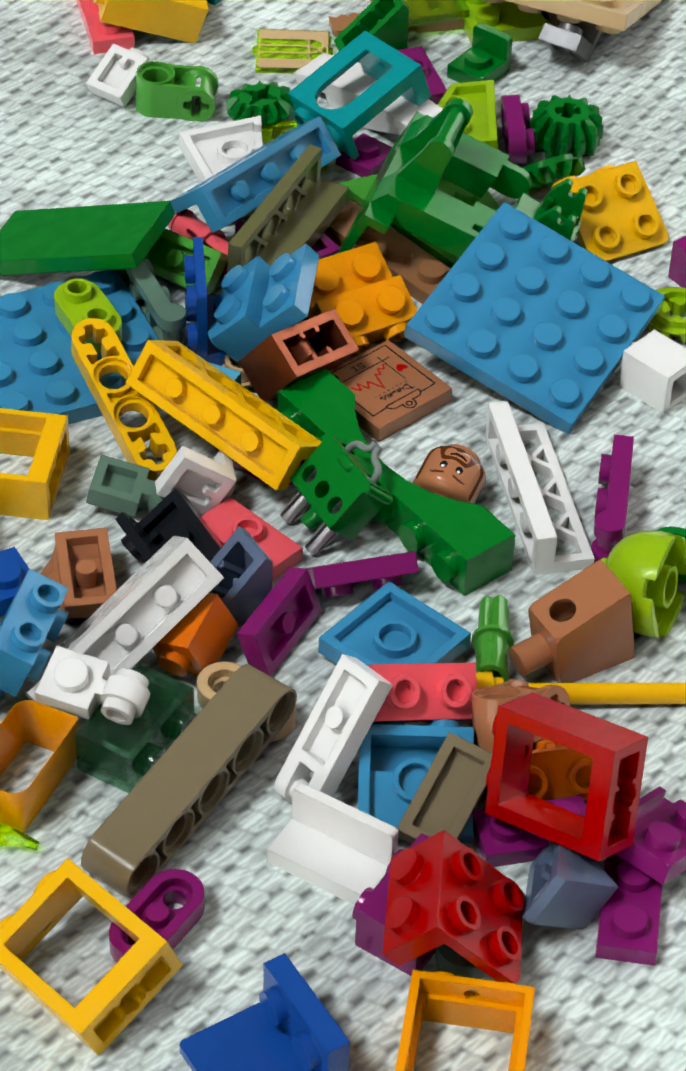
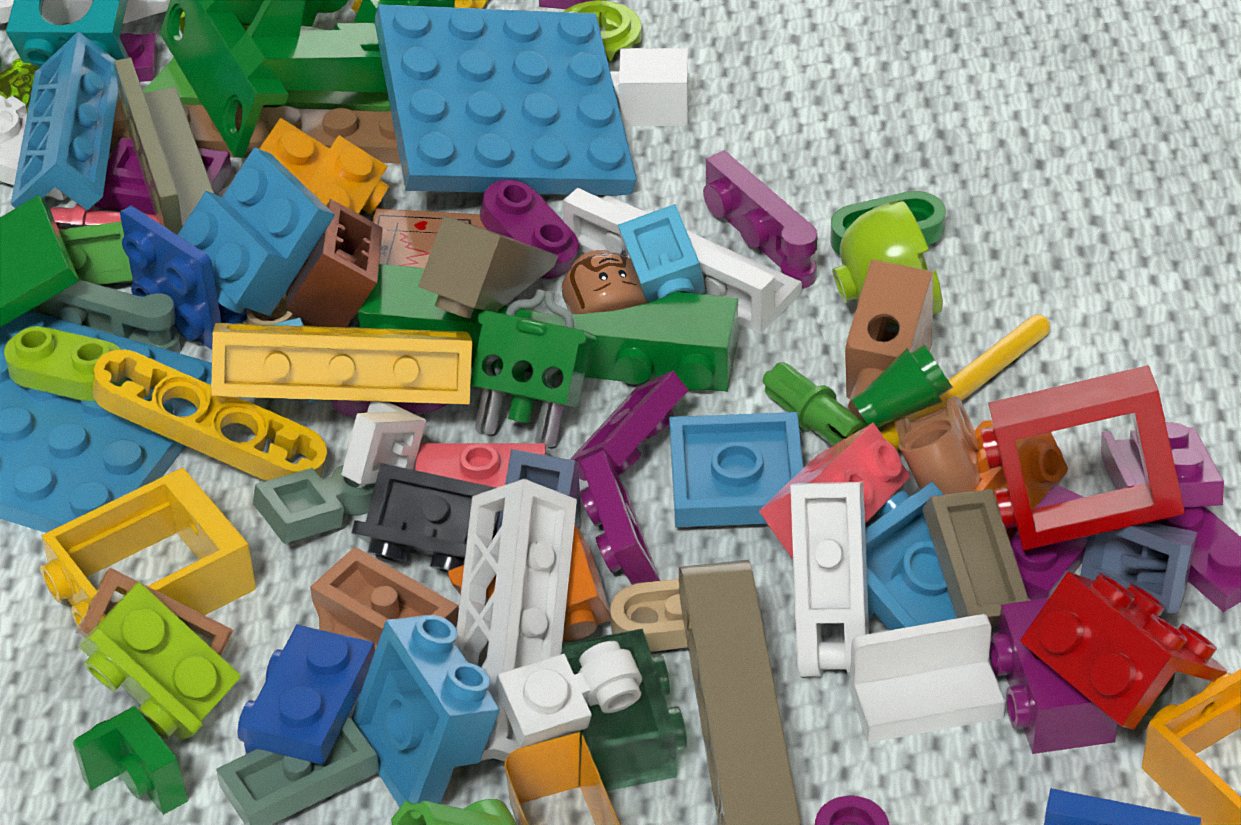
camera: 40 degrees left, 0 degrees up
(369, 407) = (480, 268): none -> dark tan slope
(462, 407) = (523, 215): none -> magenta plate
(497, 475) = (662, 254): none -> medium azure bracket
(537, 658) = (903, 388): none -> green cone

